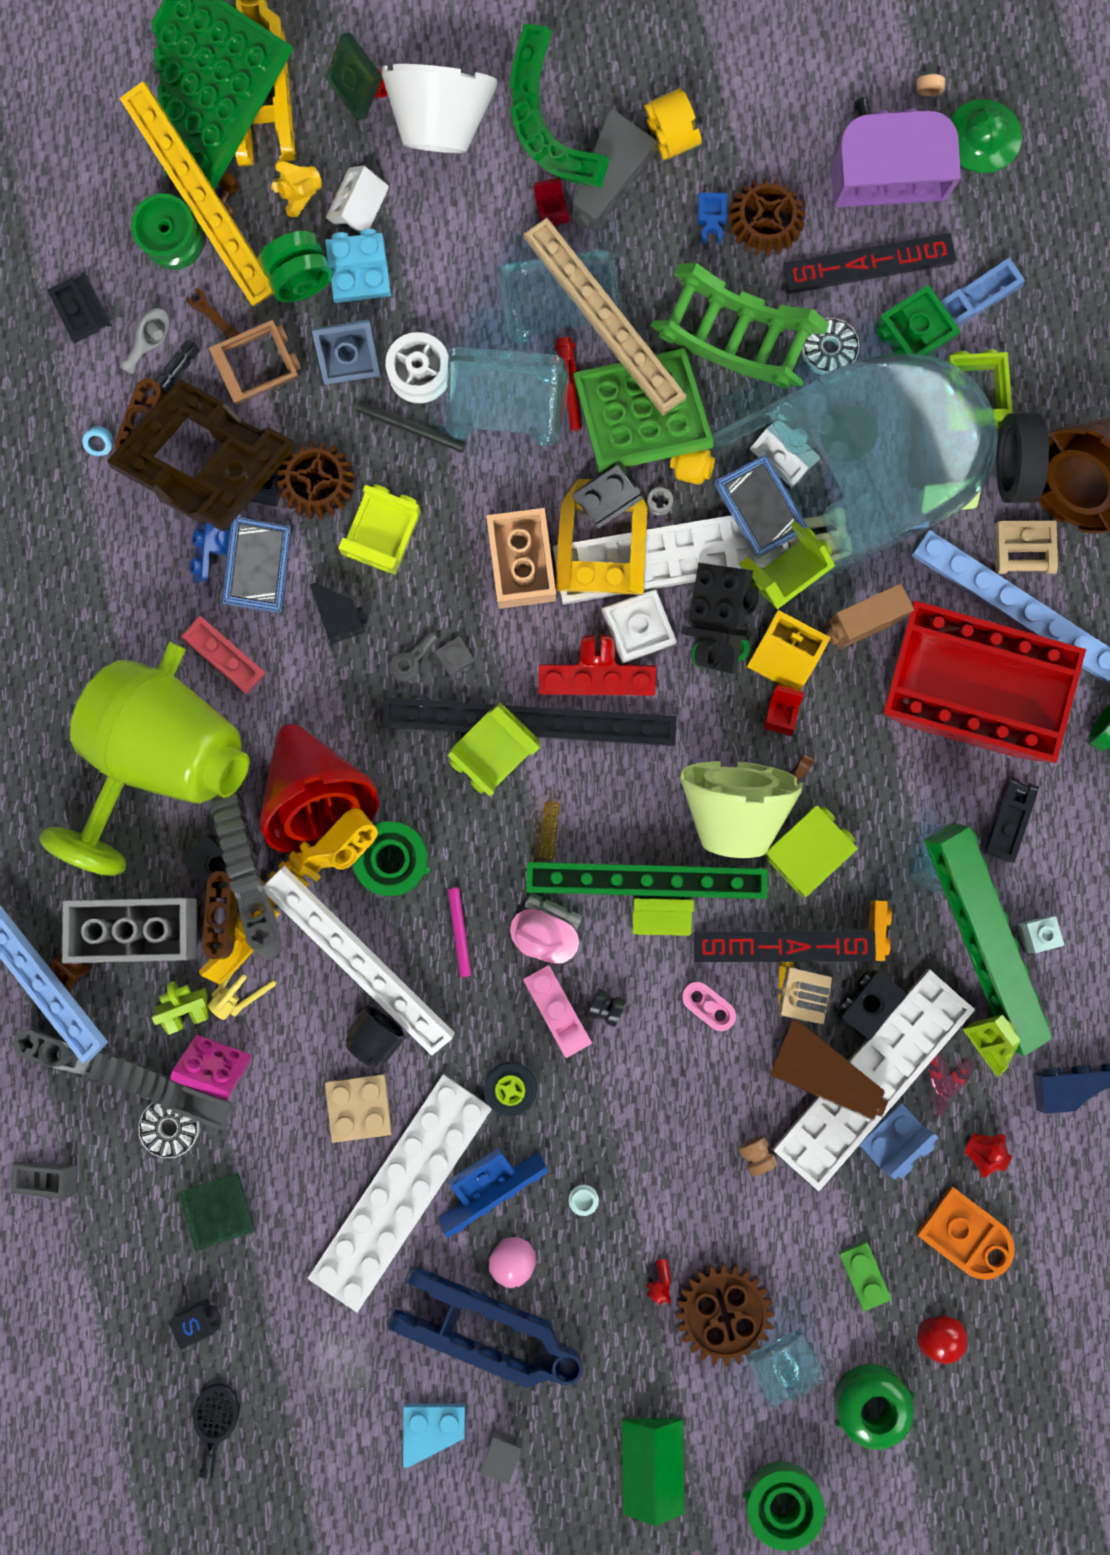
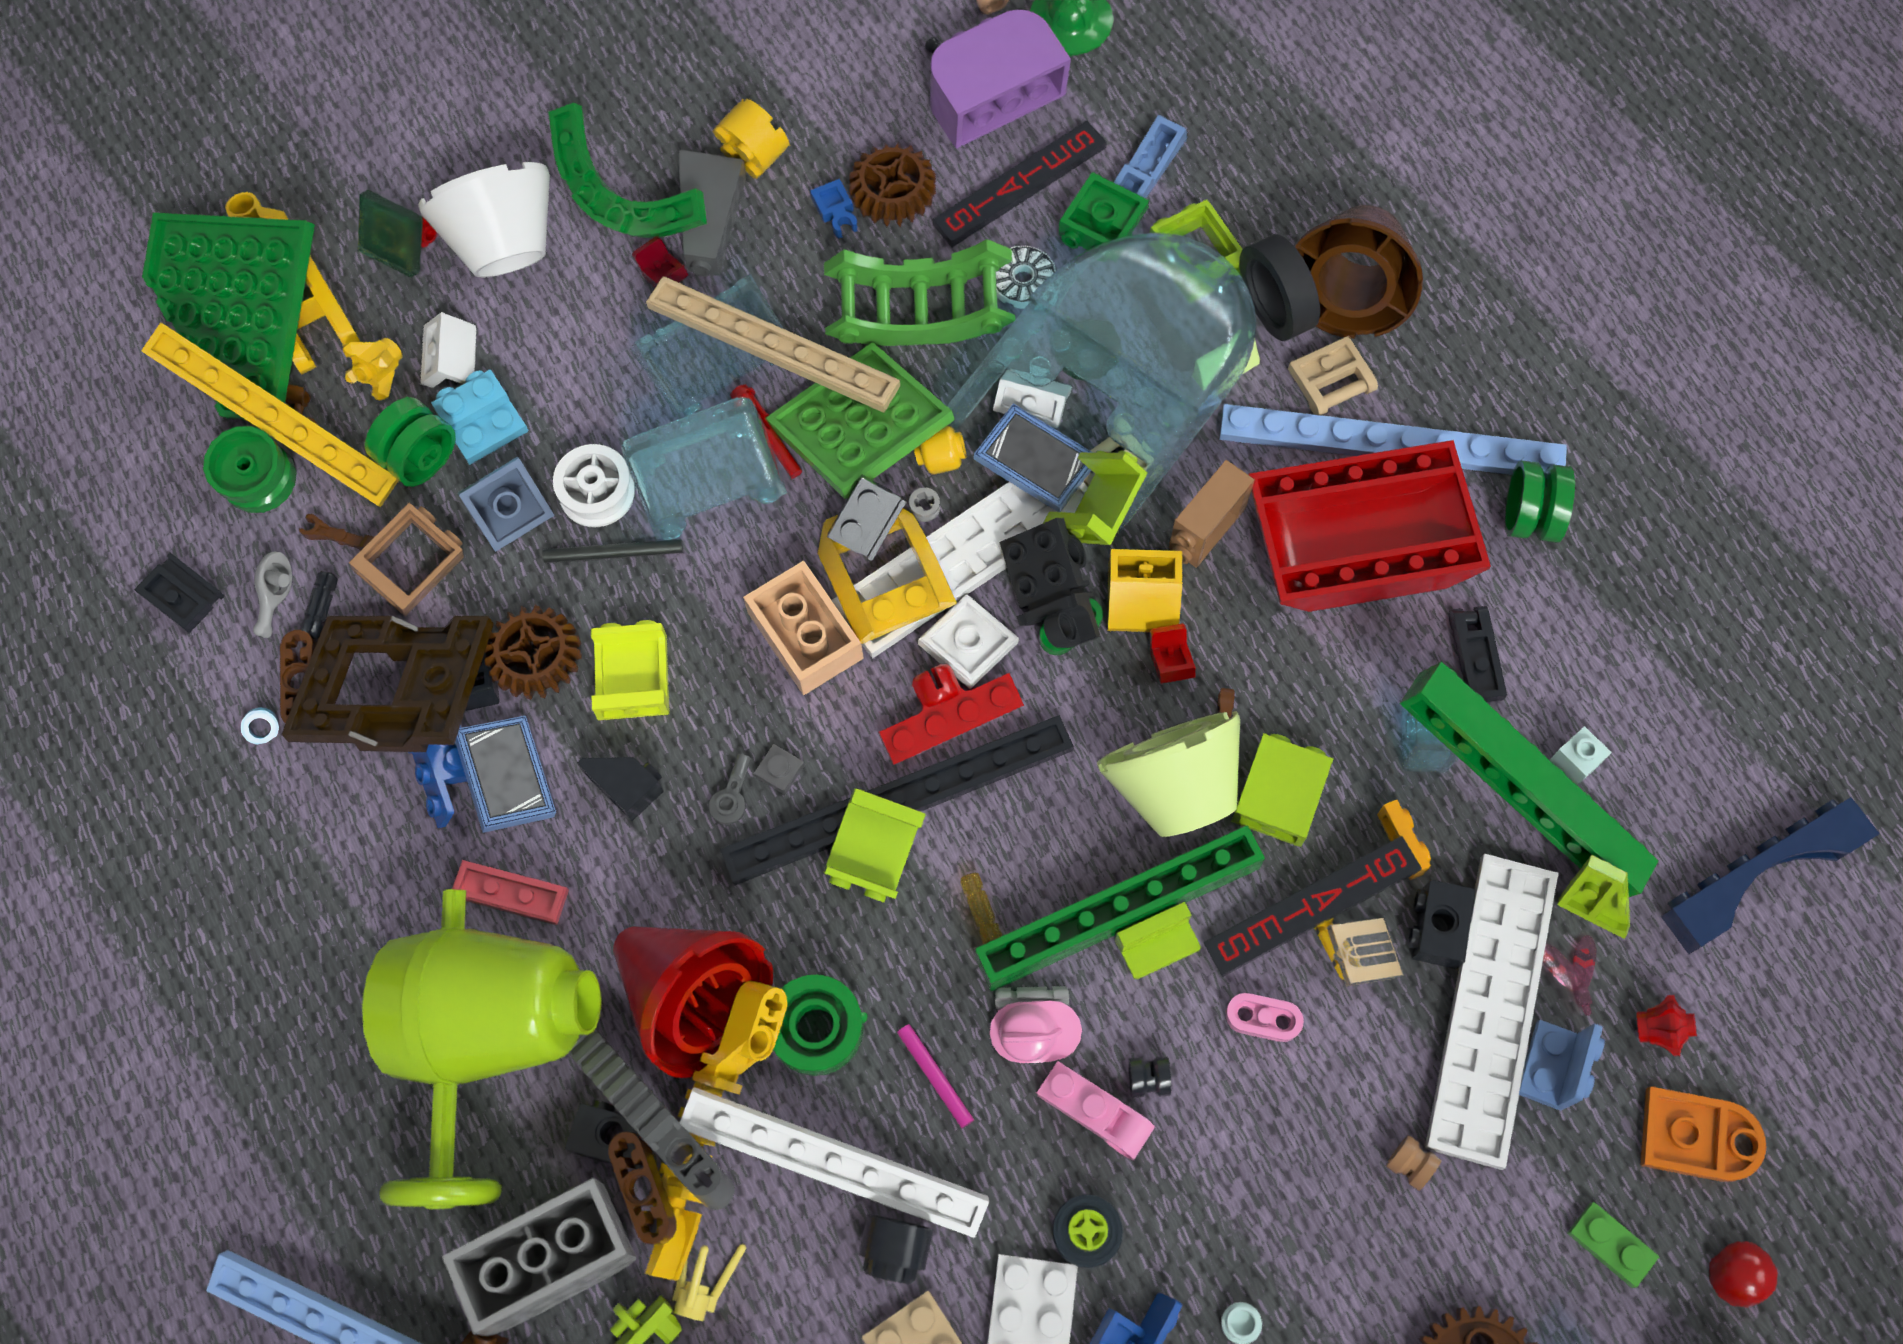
camera: 25 degrees left, 15 degrees down
(823, 1072) = (1437, 1024): reddish brown slope -> none

